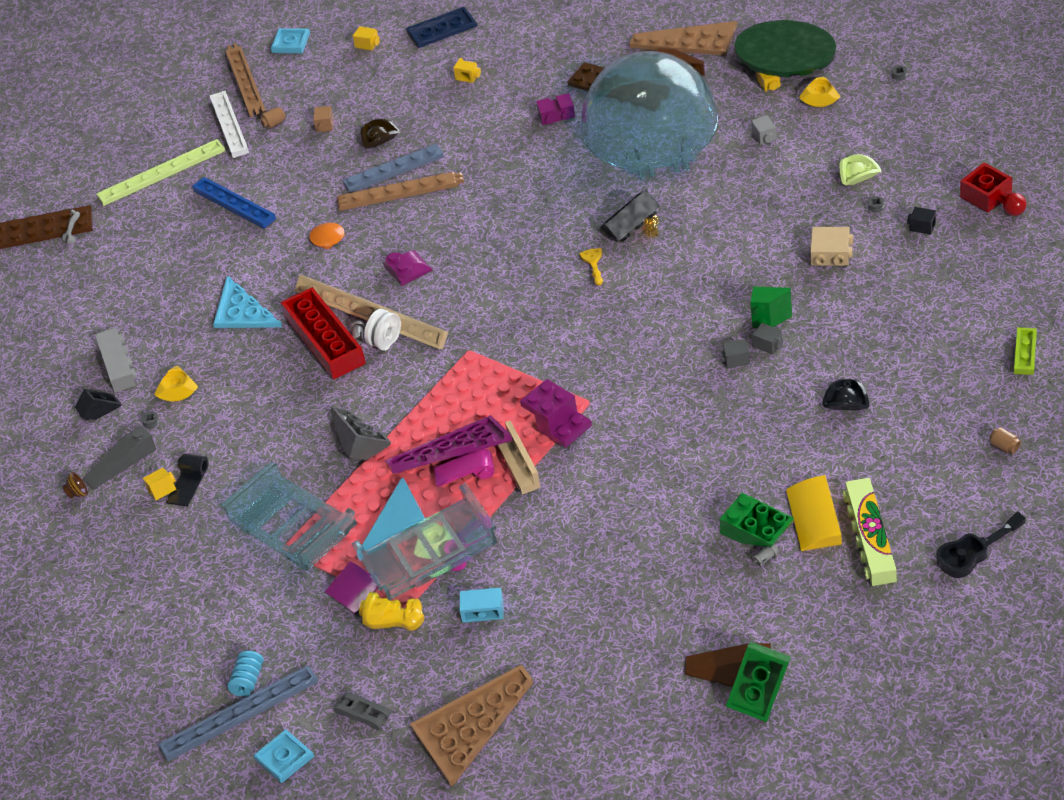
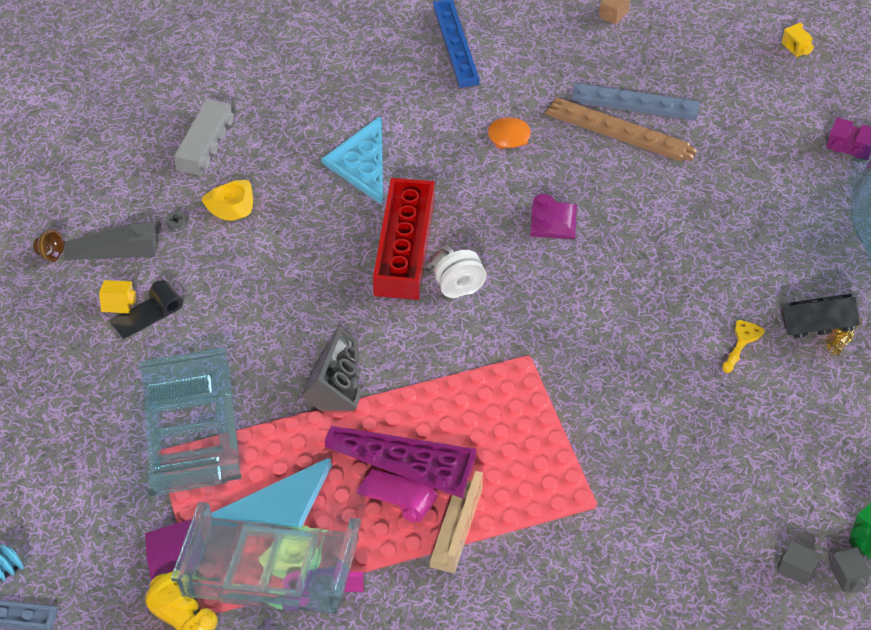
camera: 30 degrees right, 5 degrees up
(96, 404) = (145, 172): black slope -> none
(364, 309) = (468, 238): tan plate -> none
(378, 132) = (653, 53): dark brown hat -> none
(556, 413) = (540, 497): magenta bracket -> none

